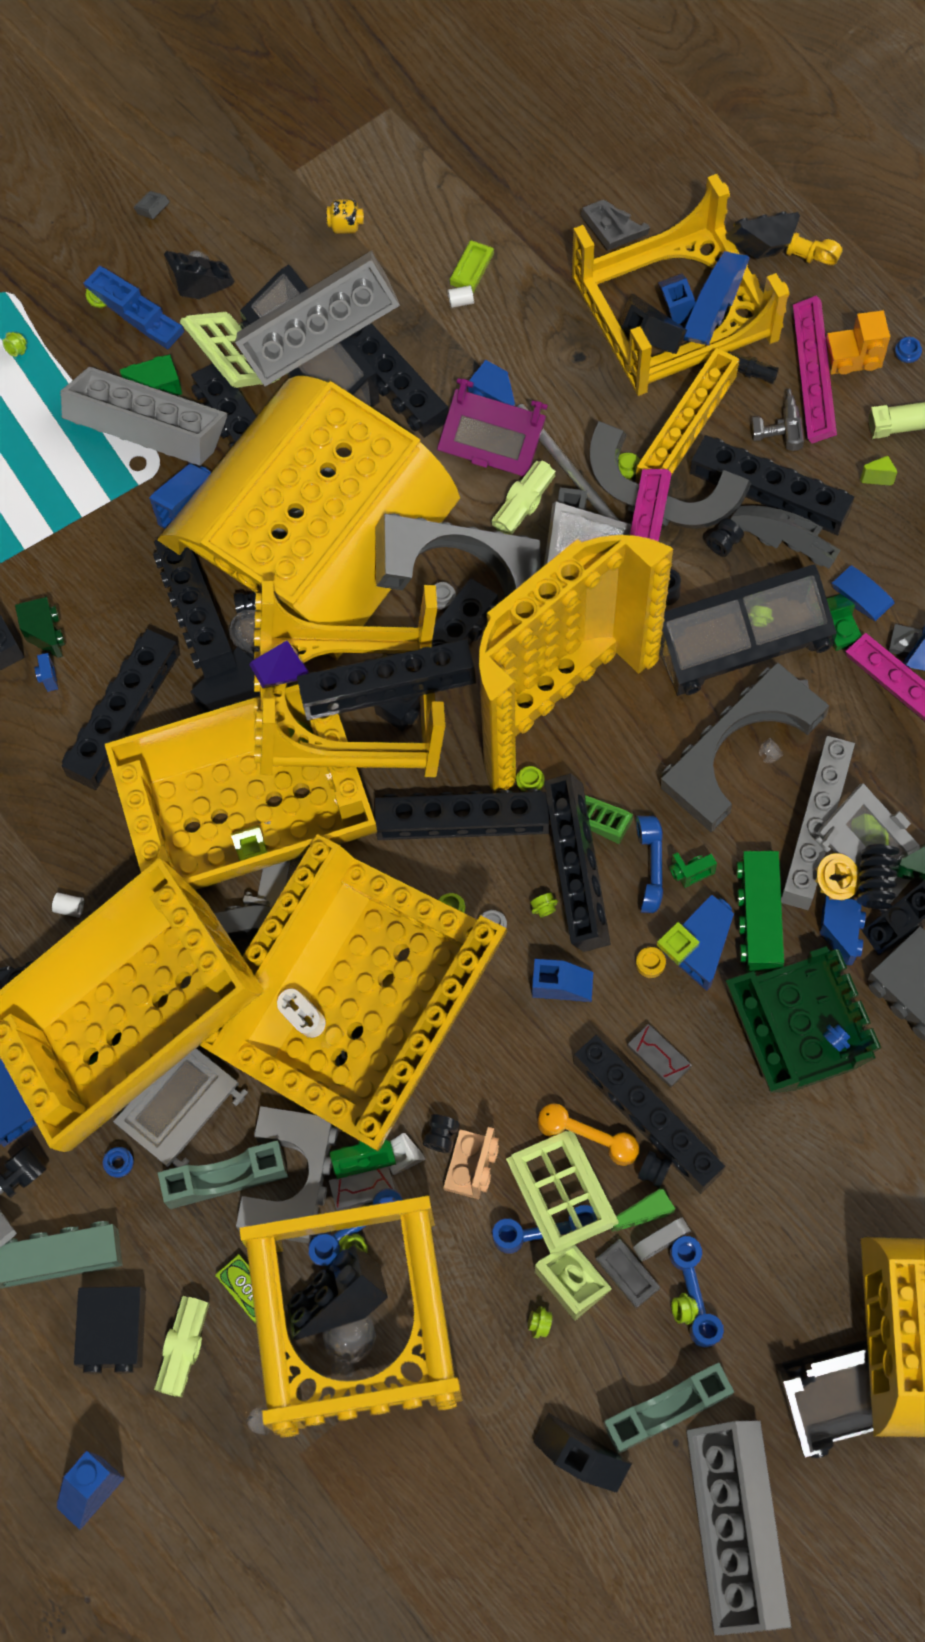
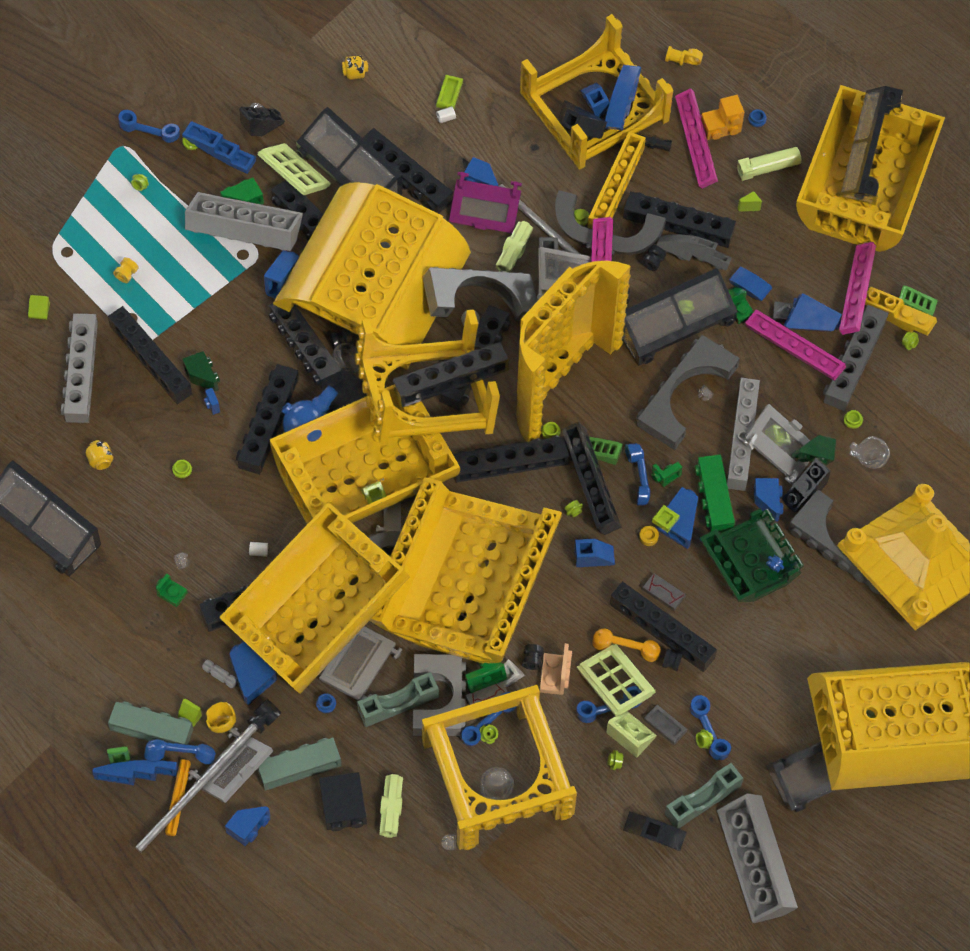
camera: 15 degrees left, 5 degrees down
(19, 261) = (129, 123): none -> blue piece
(87, 1488) = (350, 893): blue slope -> none
(151, 204) = (215, 73): dark grey tile -> none
(175, 705) = (307, 410): none -> blue piece
(237, 1281) = (424, 767): tile -> none
(278, 666) = (379, 373): dark purple slope -> none
(305, 1008) = (433, 588): white beam -> none
(317, 319) = (356, 142): light grey slope -> none
(338, 1295) = (487, 757): black slope -> none
(612, 225) = (542, 53): flat silver wing -> none
(649, 1209) = (671, 684): bright green slope -> none
(661, 1239) = (683, 700): light grey beam -> none
(765, 234) = (649, 50): black slope -> none
(790, 426) = (685, 179): flat silver piece -> none
(842, 865) = (761, 457): yellow gear -> none
(875, 876) = (786, 461): black piece -> none

